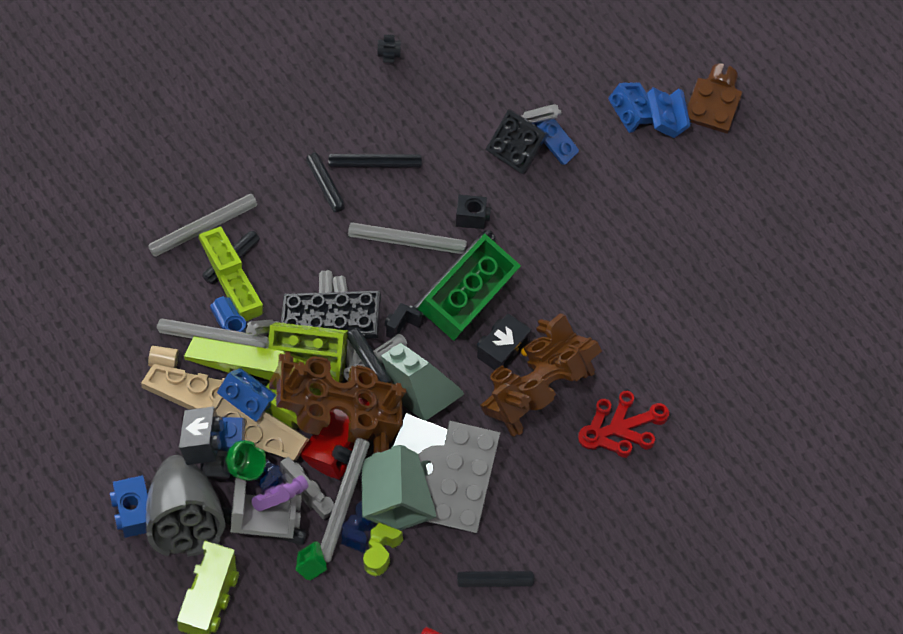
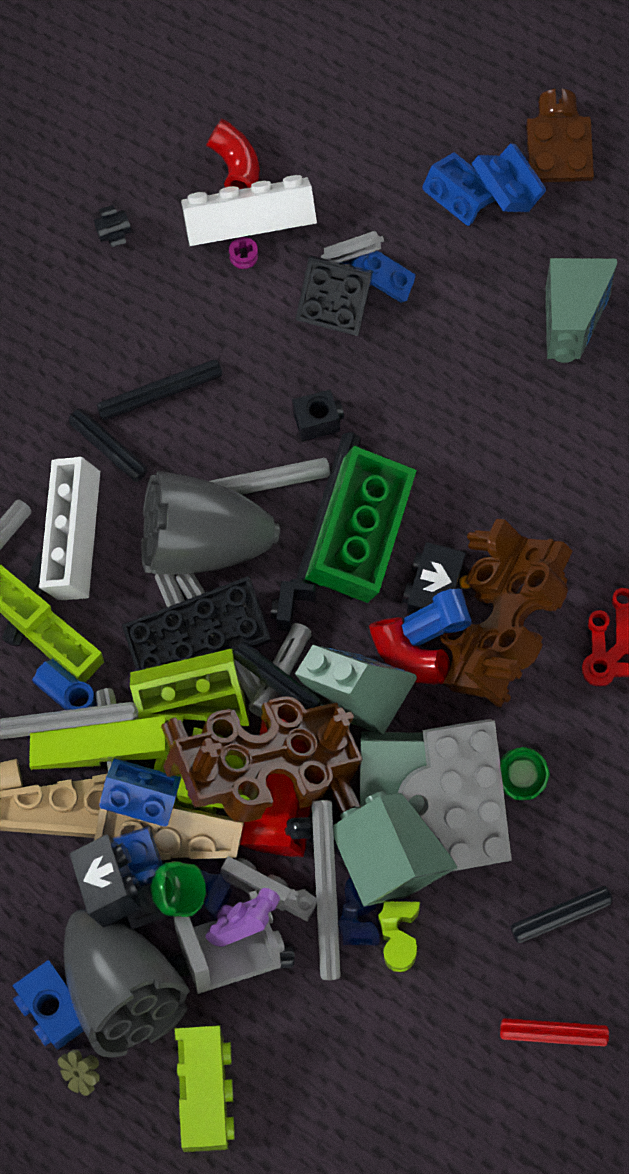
camera: 15 degrees left, 10 degrees up
(132, 553) = (79, 1071): none -> olive plant
(259, 327) = (117, 690): light grey axle -> none
(276, 222) = (70, 529): none -> white brick
(311, 561) = (316, 987): green slope -> none
(364, 251) = (200, 526): none -> dark grey cylinder
(459, 373) = (397, 651): none -> red cylinder
(463, 93) = (234, 249): none -> magenta bush
(482, 69) = (248, 210): none -> white brick
(493, 36) = (236, 153): none -> red cylinder
(499, 360) = (444, 615): none -> blue piece
(507, 480) = (526, 767): none -> green hair
(677, 202) = (574, 303): none -> sand green slope

